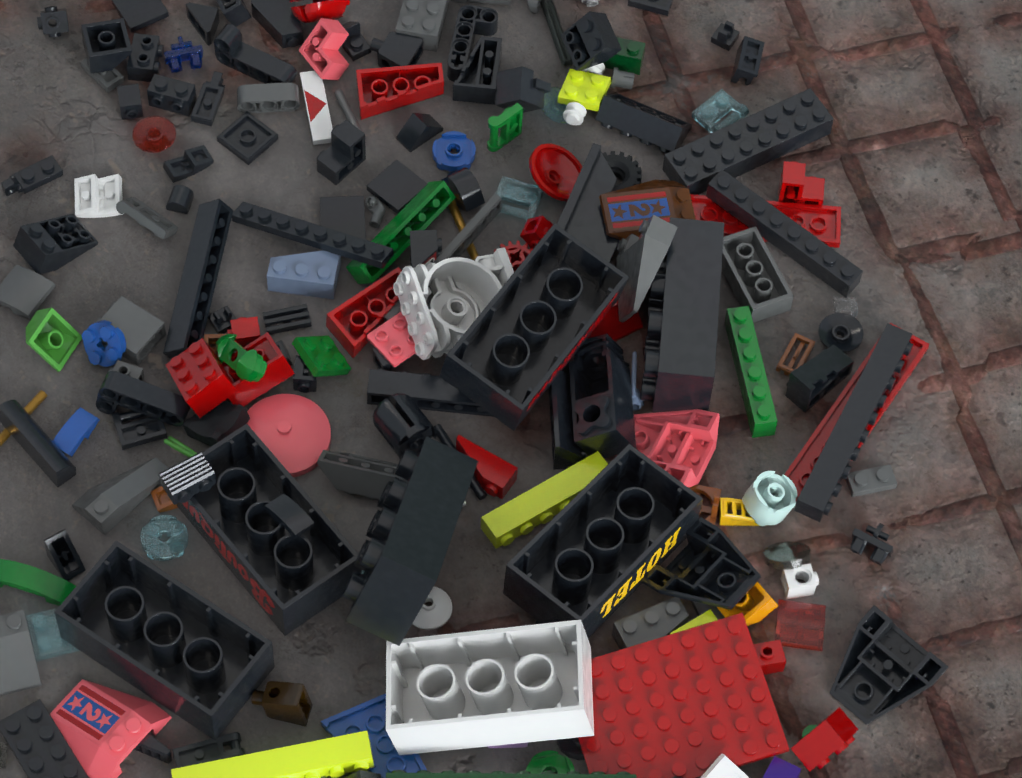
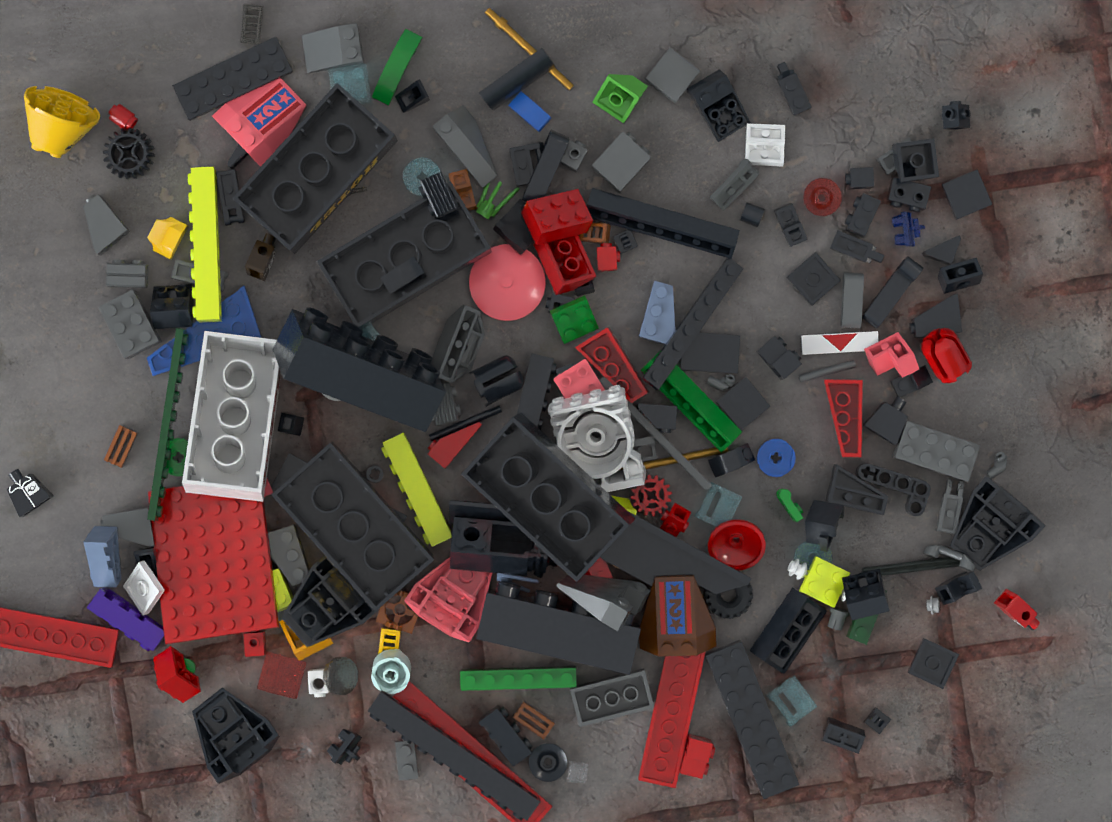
camera: 100 degrees right, 30 degrees up
(93, 344) = (605, 139): blue plate -> none
(247, 365) = (557, 253): green piece -> none
(286, 316) = (622, 311): black tile -> none
(418, 131) = (802, 430): black slope -> none
(784, 233) = (646, 731): black brick -> none

